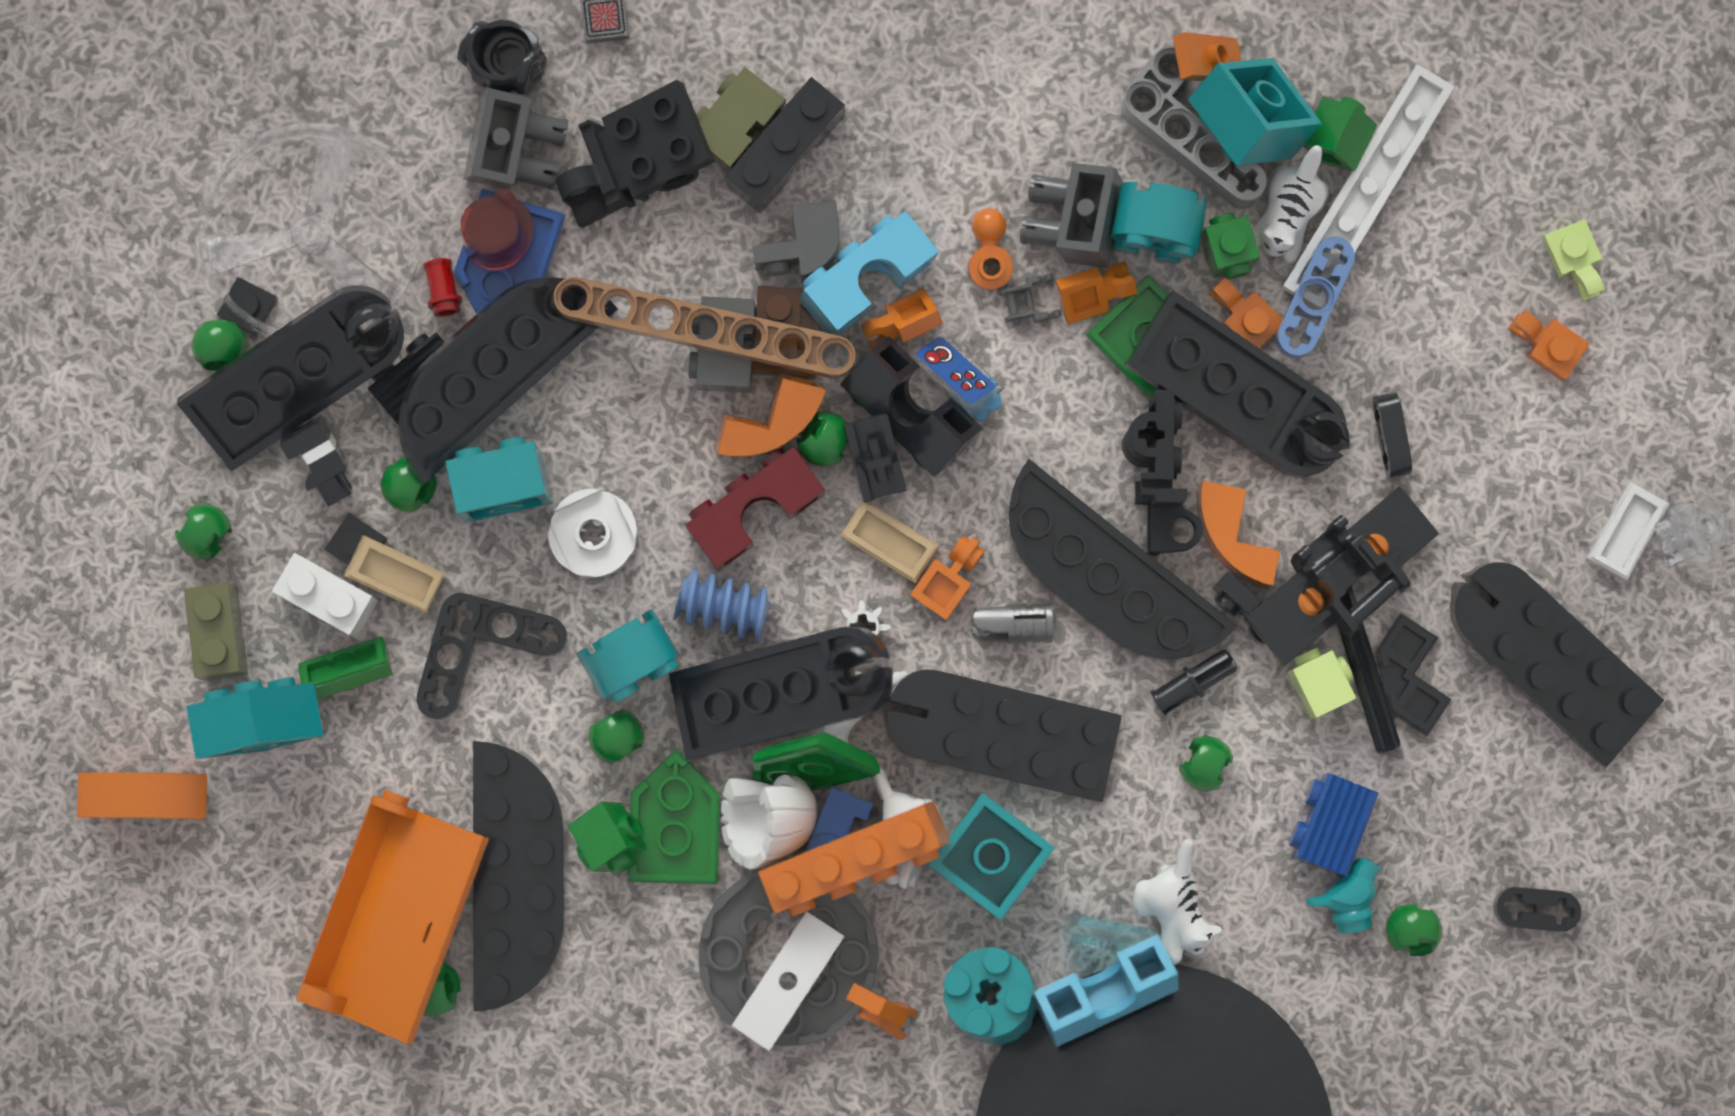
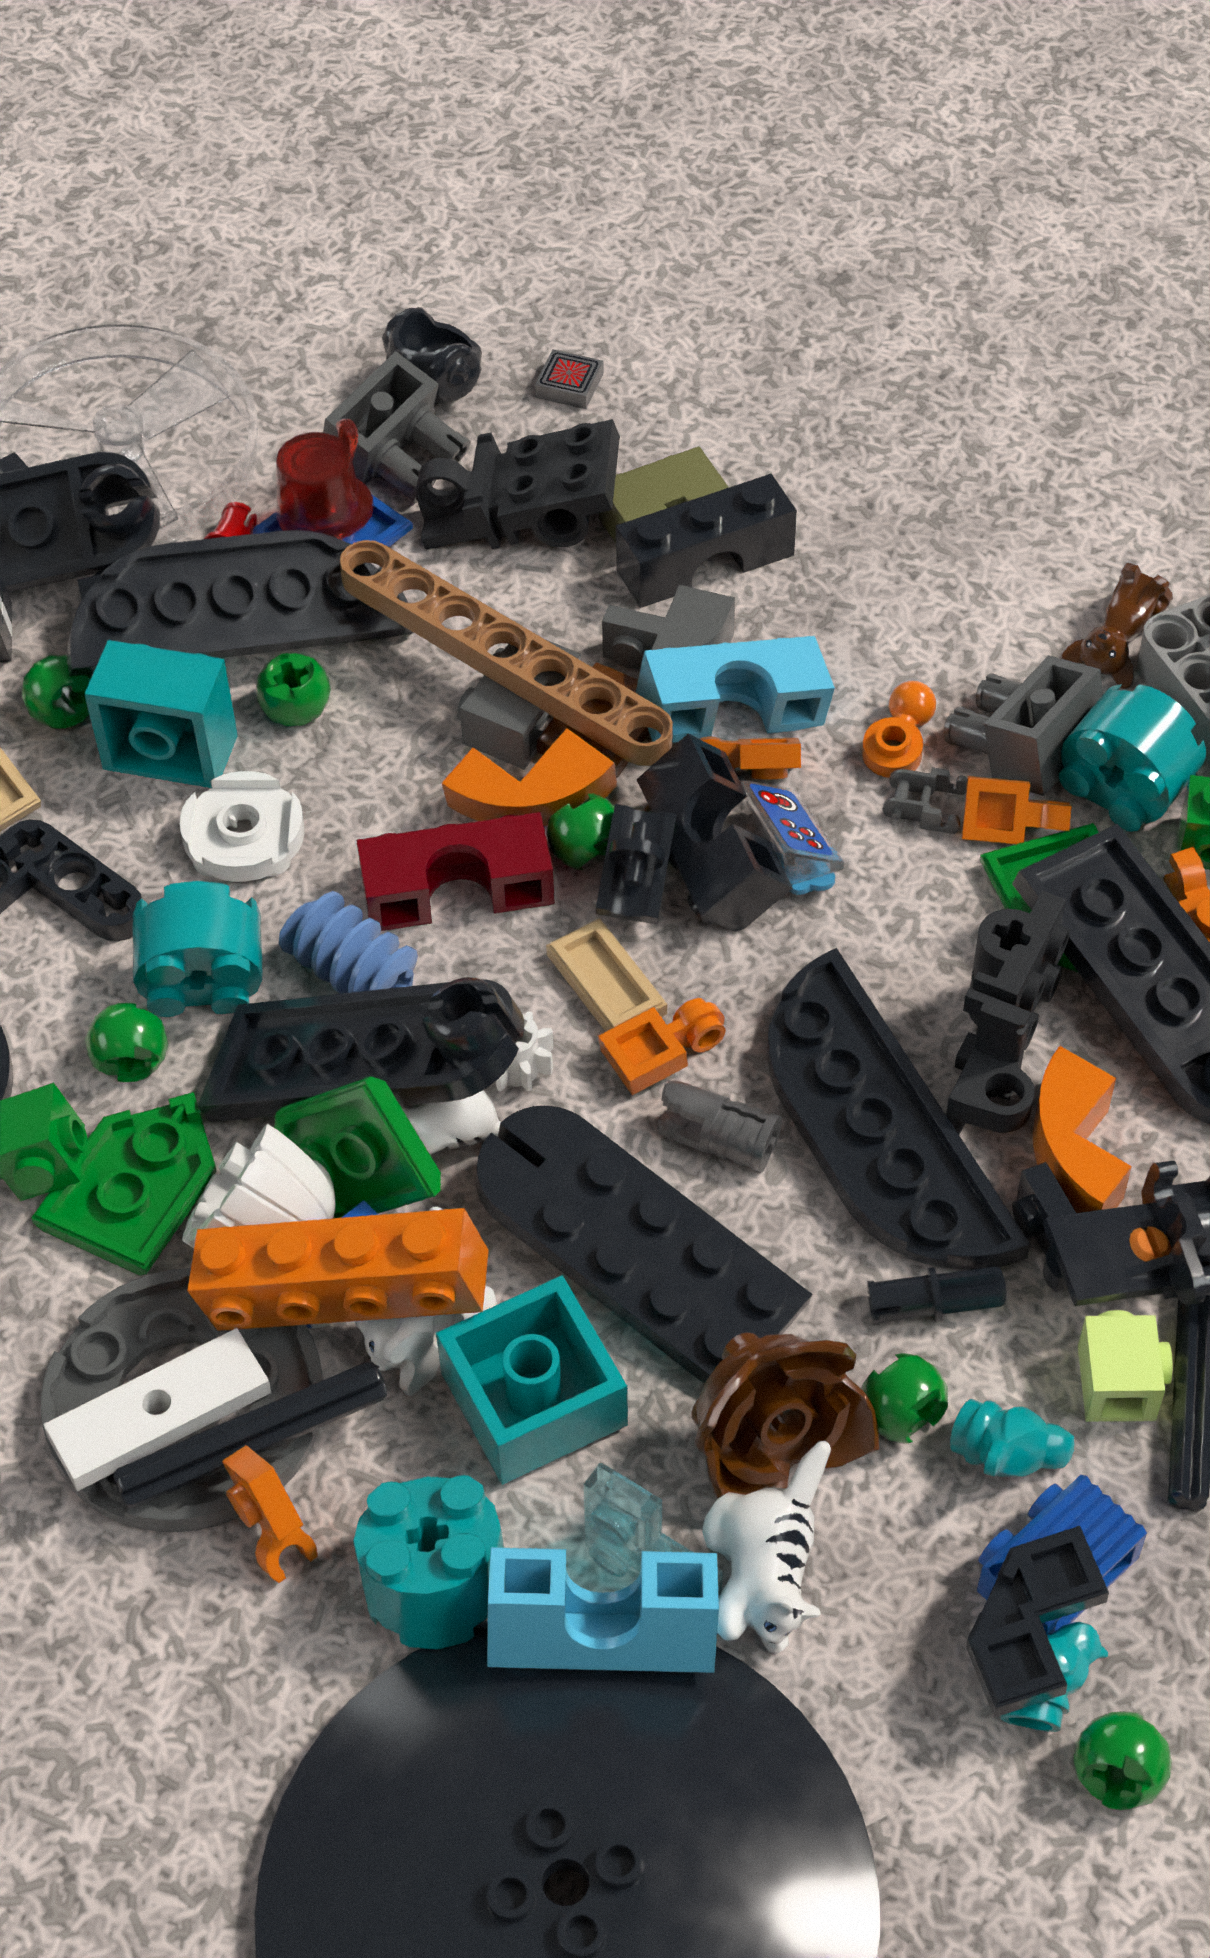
camera: 30 degrees right, 30 degrees down
(565, 389) = (292, 689): none -> green piece
(848, 969) = (258, 1429): none -> black axle
(1104, 81) = (1132, 604): none -> reddish brown animal
(1139, 815) = (775, 1404): none -> reddish brown brick
(1276, 762) = (1009, 1440): none -> teal animal
(1331, 862) = (1008, 1639): none -> black tile

